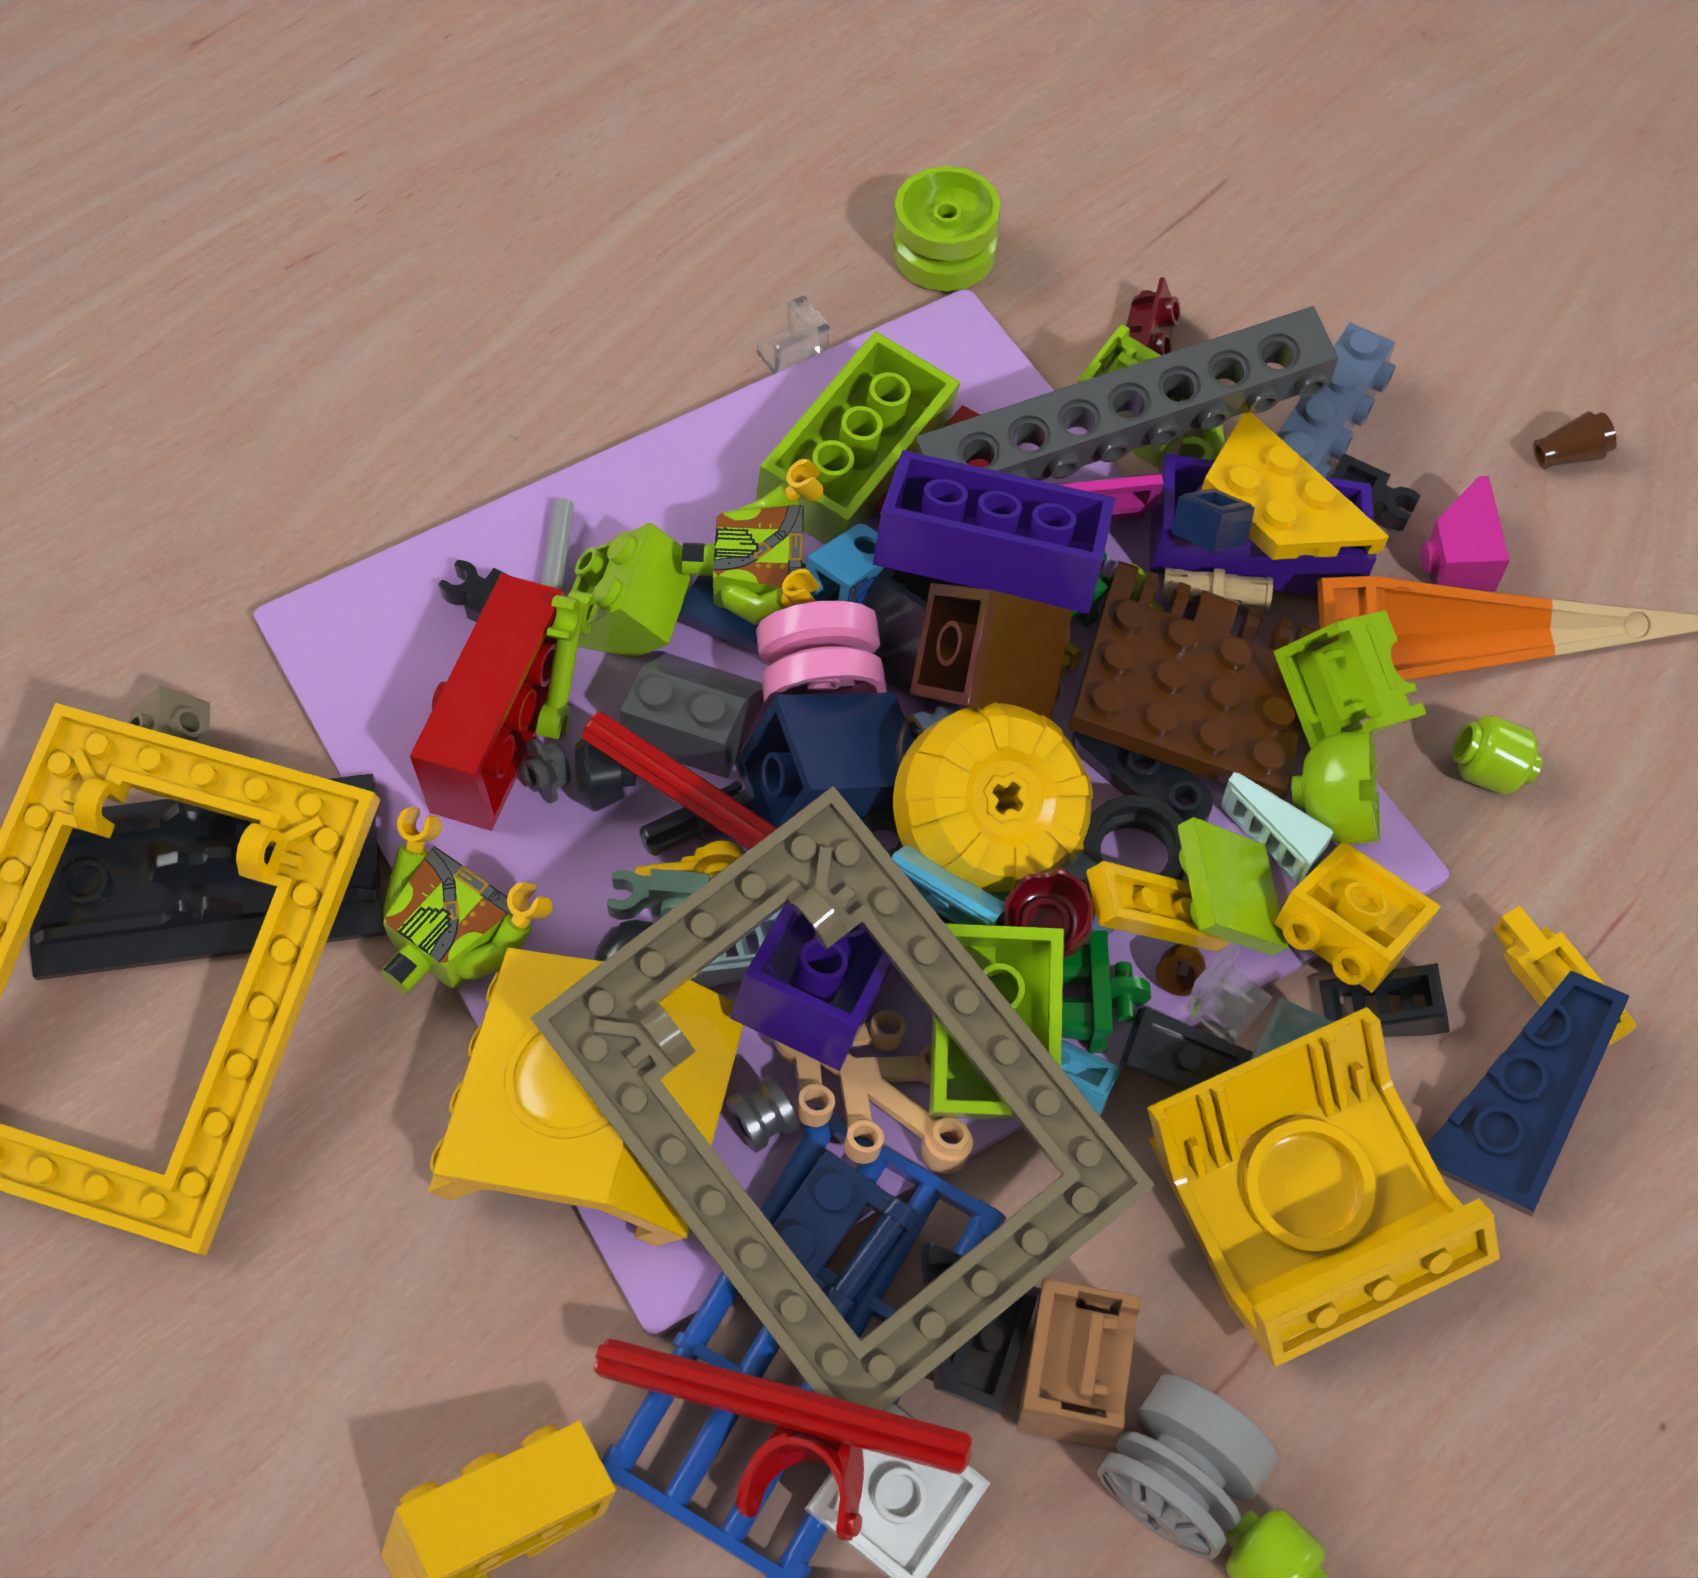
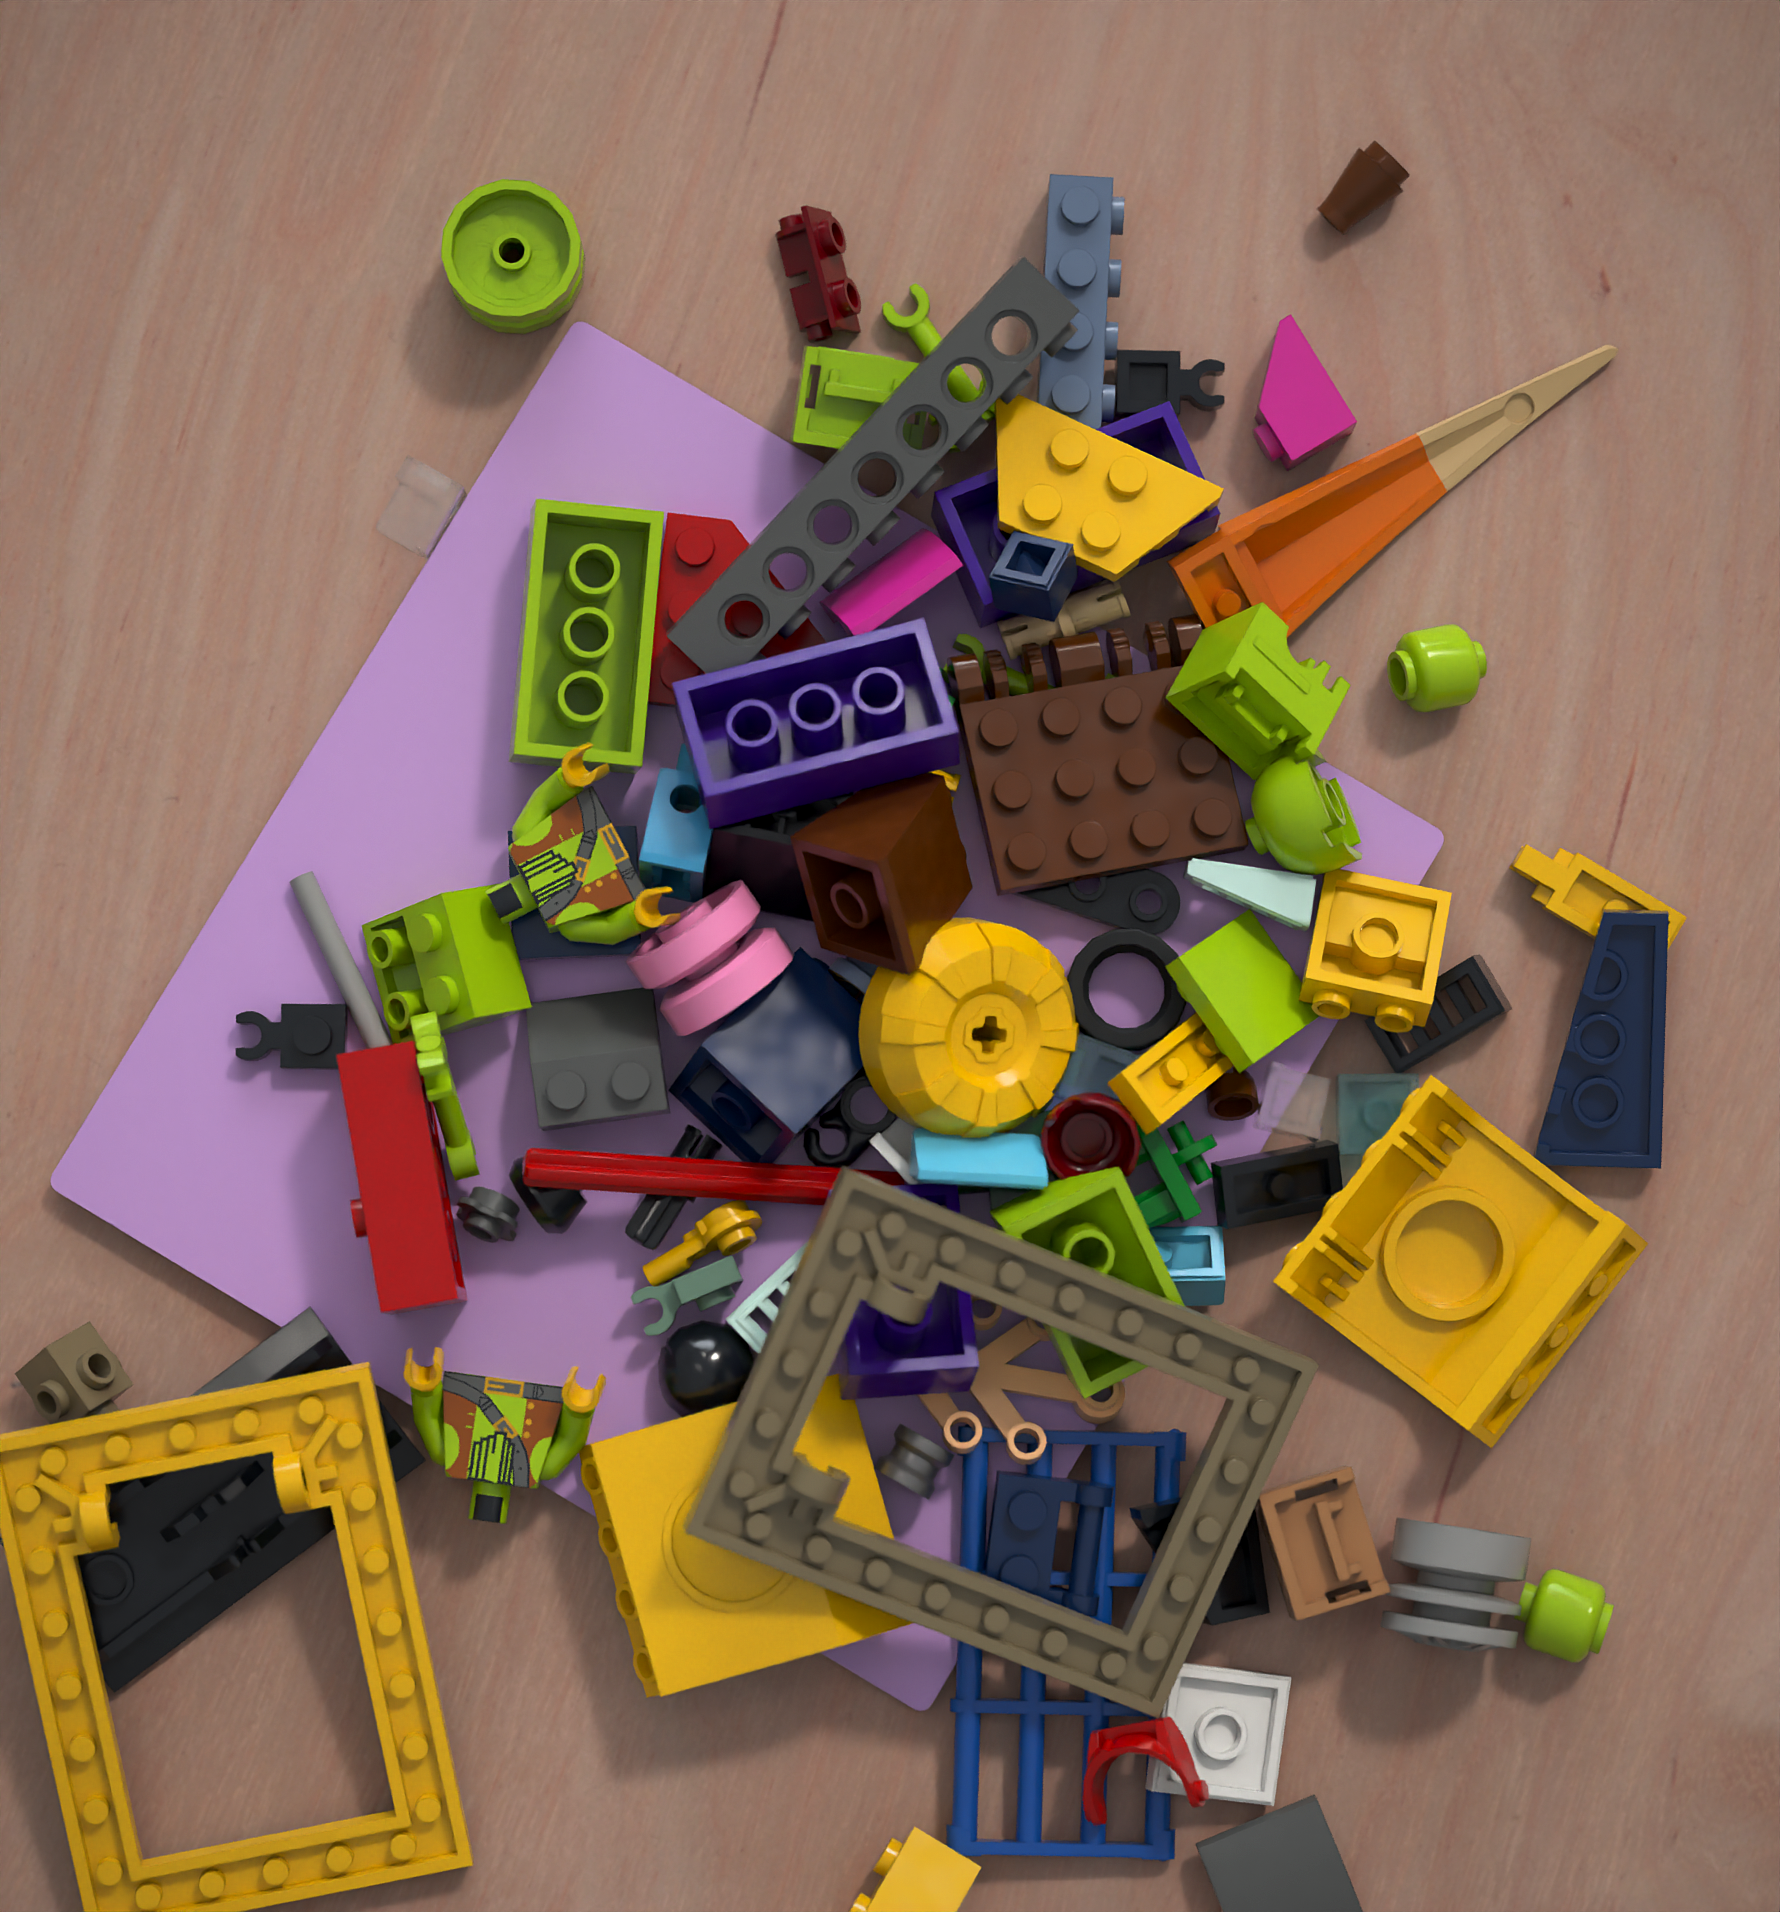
camera: 30 degrees left, 25 degrees up
(785, 1406) = (1085, 1726): red axle -> none

